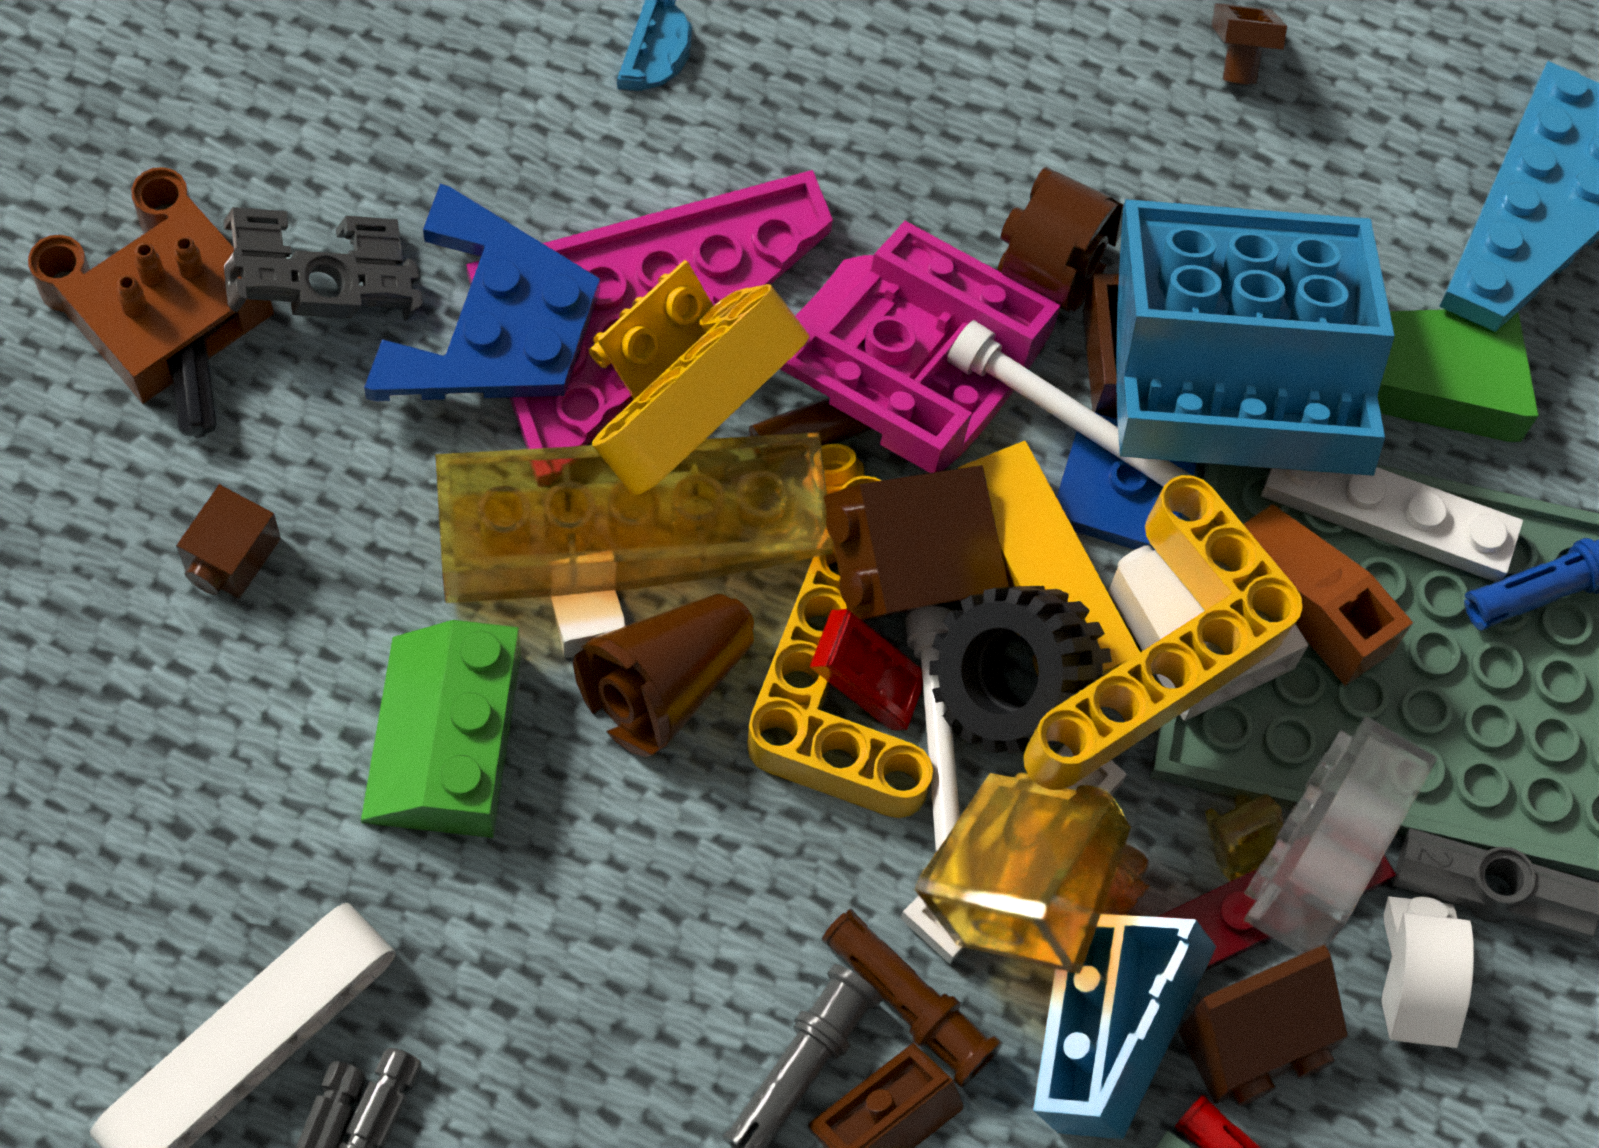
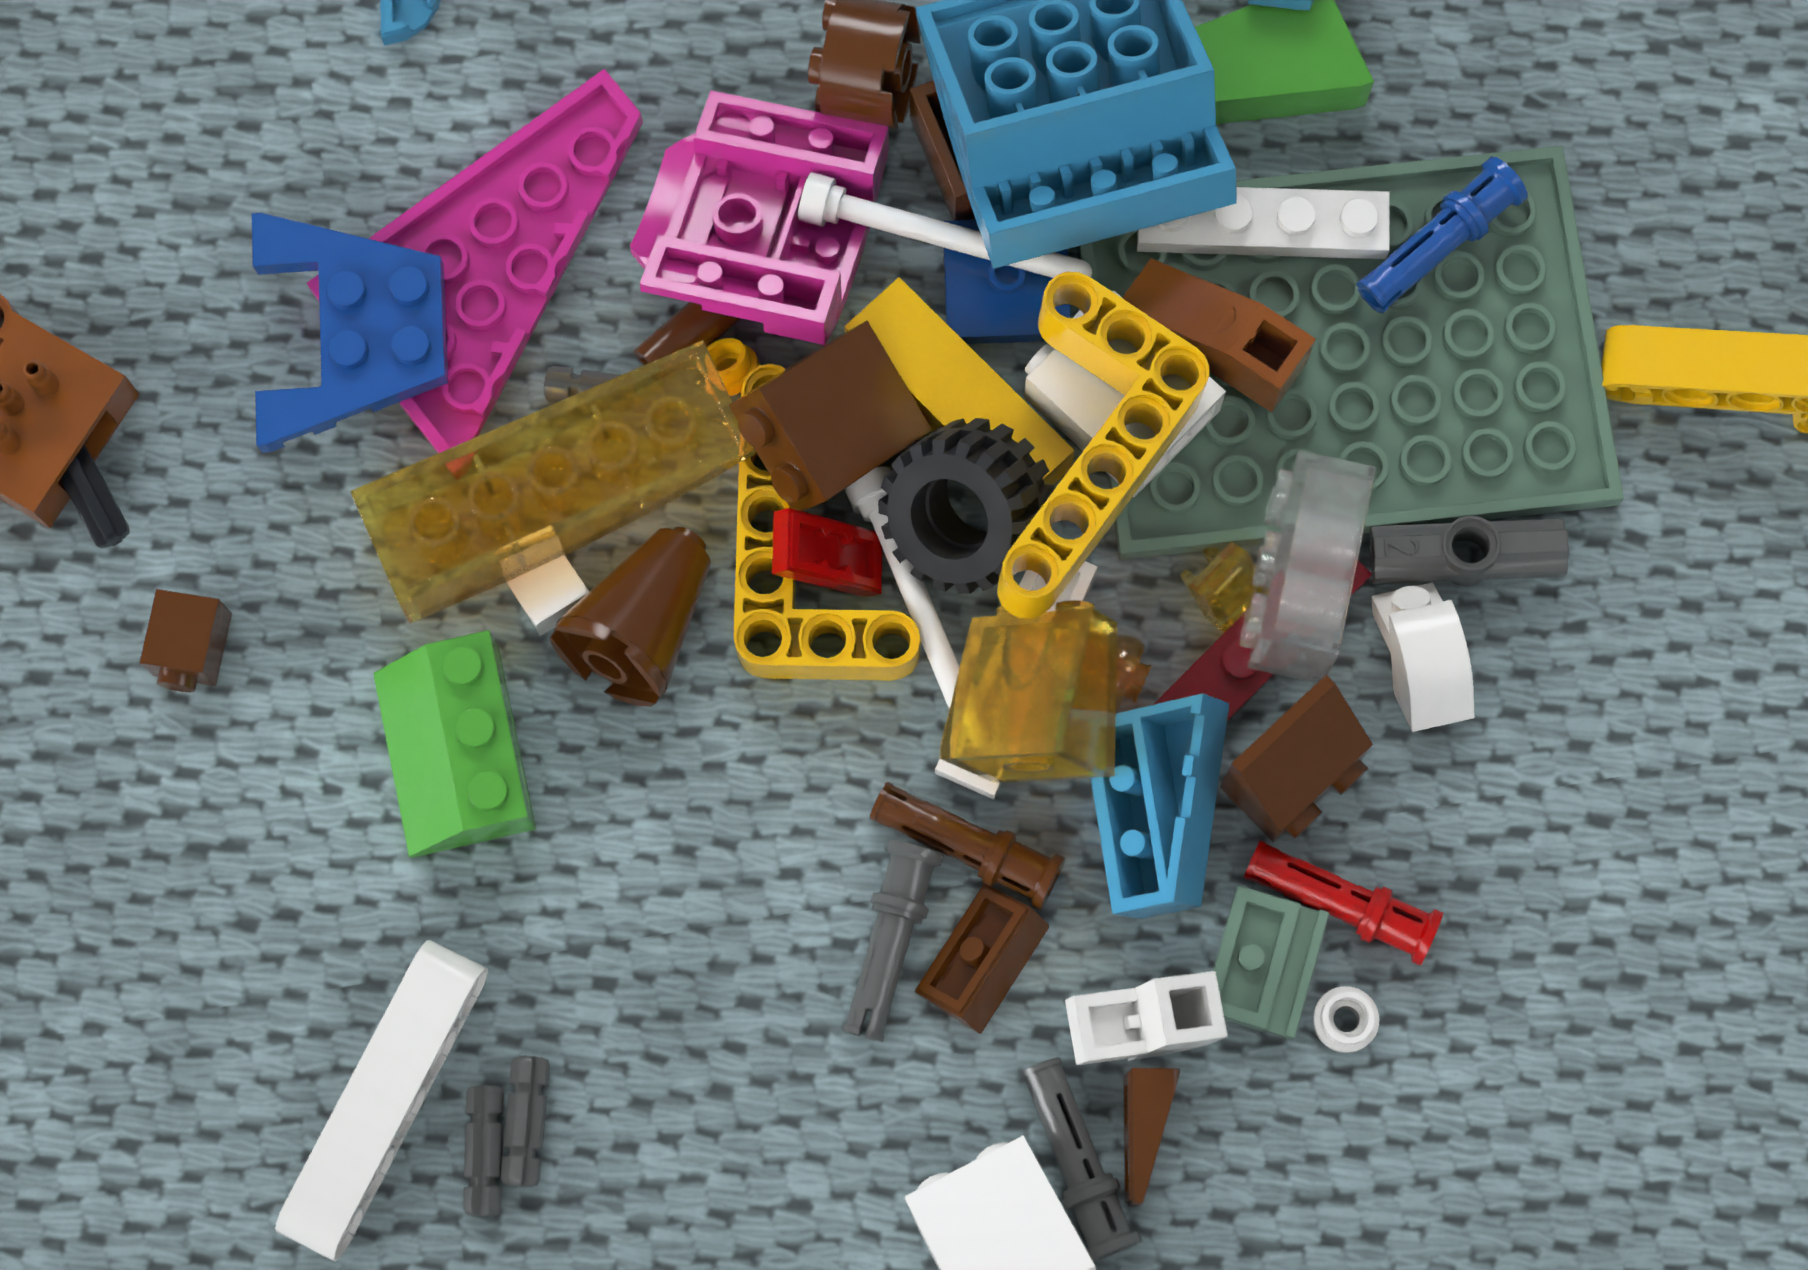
camera: 10 degrees left, 10 degrees up
(271, 276) = (127, 367): dark grey piece -> none
(654, 330) = (528, 299): yellow hinge -> none
(743, 347) = (602, 291): yellow beam -> none

